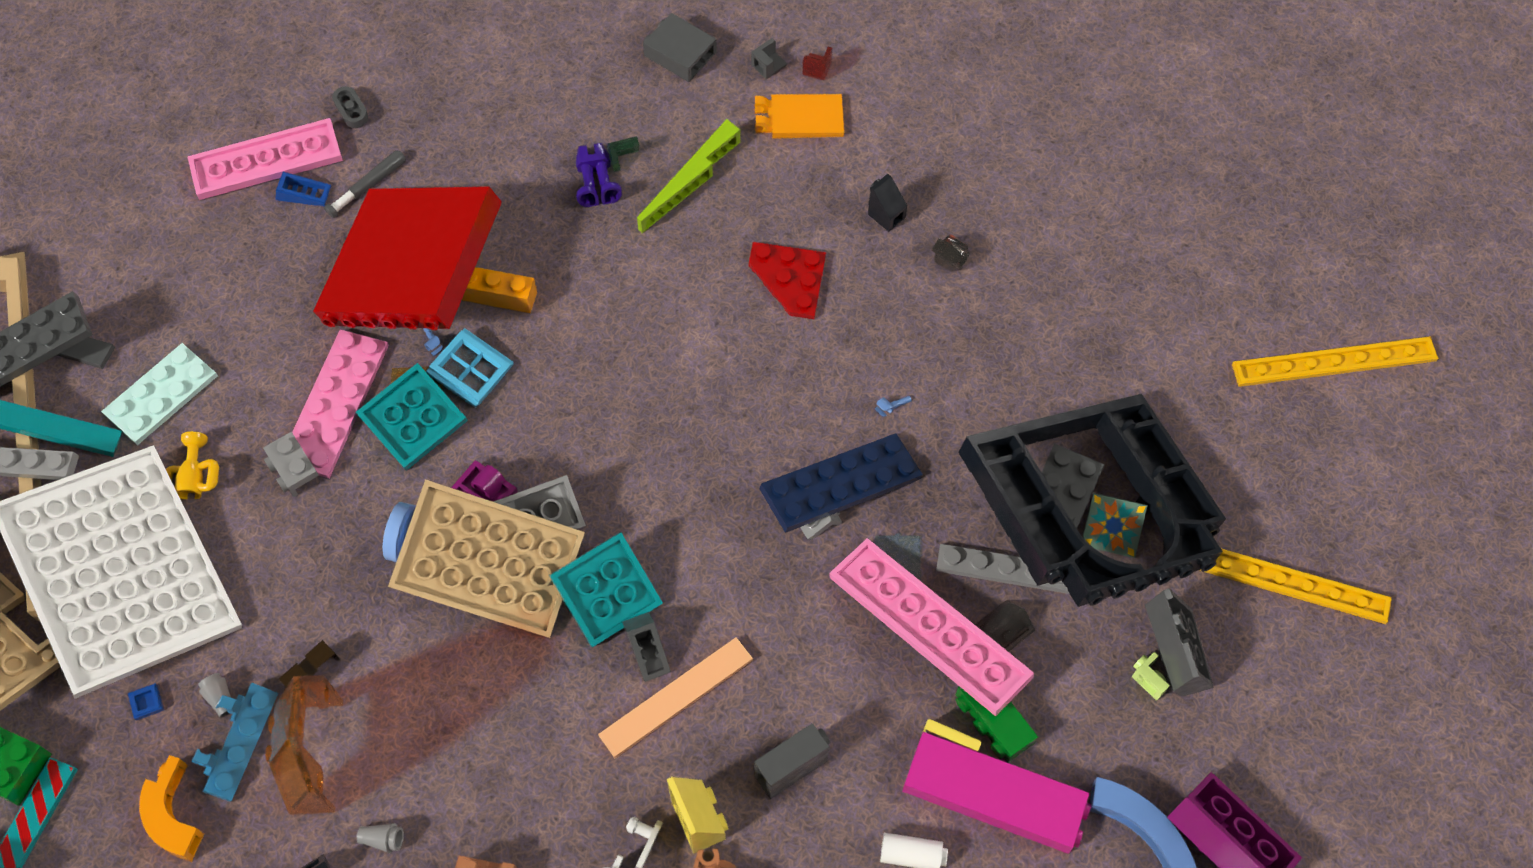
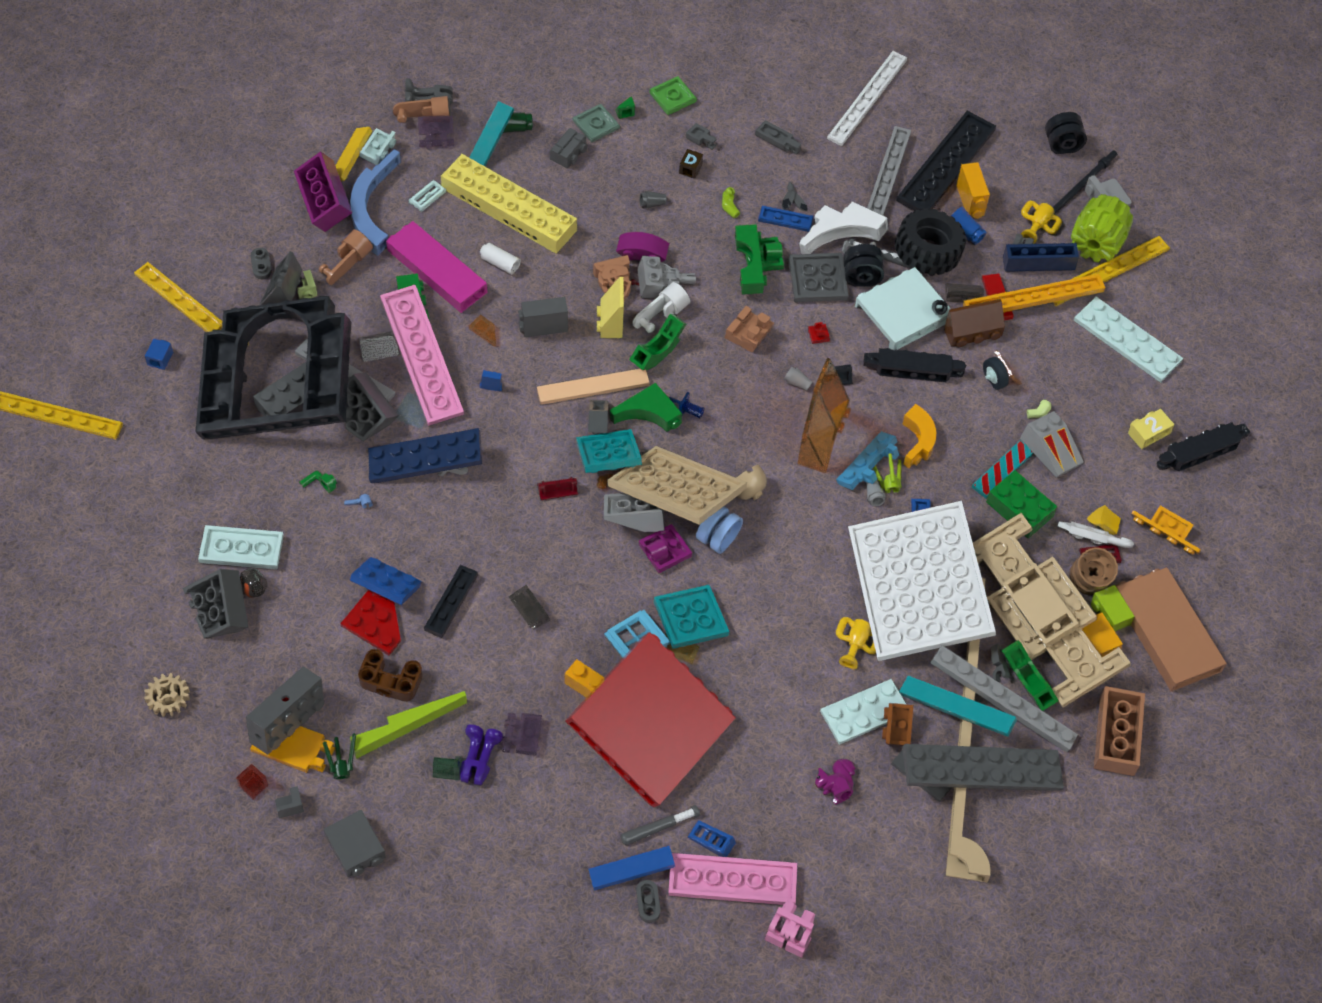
camera: 160 degrees left, 5 degrees down
(111, 382) = (898, 724): none -> dark orange bracket
(169, 296) = (839, 783): none -> magenta animal
(183, 121) = (791, 928): none -> bright pink hips
(195, 721) = (891, 481): none -> lime plant
(290, 462) = (786, 615): light grey bracket -> none
(310, 664) = (813, 482): dark brown piece -> none
(337, 397) = (744, 652): bright pink plate -> none
(378, 127) = (631, 868): none -> blue tile
(397, 621) = (755, 481): none -> tan cylinder
(532, 713) = (686, 406): none -> clear blue bracket
(551, 219) = (528, 735): none -> clear purple plate
(577, 691) = (651, 406): none -> green arch
(608, 792) = (652, 353): none -> green arch
(615, 352) = (529, 607): none -> clear smoke hinge
(655, 522) = (557, 488): none -> dark red hinge
(713, 326) = (451, 601): none -> black plate
(733, 104) = (340, 768): none -> dark green plant
(736, 206) = (387, 683): none -> reddish brown beam
(801, 313) = (385, 580): none -> blue plate
(817, 638) = (491, 381): none -> blue tile
(819, 119) = (285, 710): none -> dark grey brick
(871, 722) = (484, 329): none -> clear orange tile
(886, 203) = (277, 635): black slope -> none
(946, 407) = (327, 481): none -> green plate
(950, 112) = (167, 695): none -> tan gear
(952, 735) = (444, 300): light yellow tile -> none
(957, 521) = (366, 407): none -> dark grey wedge
(970, 215) = (218, 603): none -> dark grey wedge
(992, 291) = (241, 547): none -> light aqua plate
(1114, 524) = (268, 367): tile -> none
(1124, 764) = (351, 250): none -> nougat piece
(1241, 690) = (259, 262): none -> dark grey plate
(1266, 487) = (158, 354): none -> blue brick

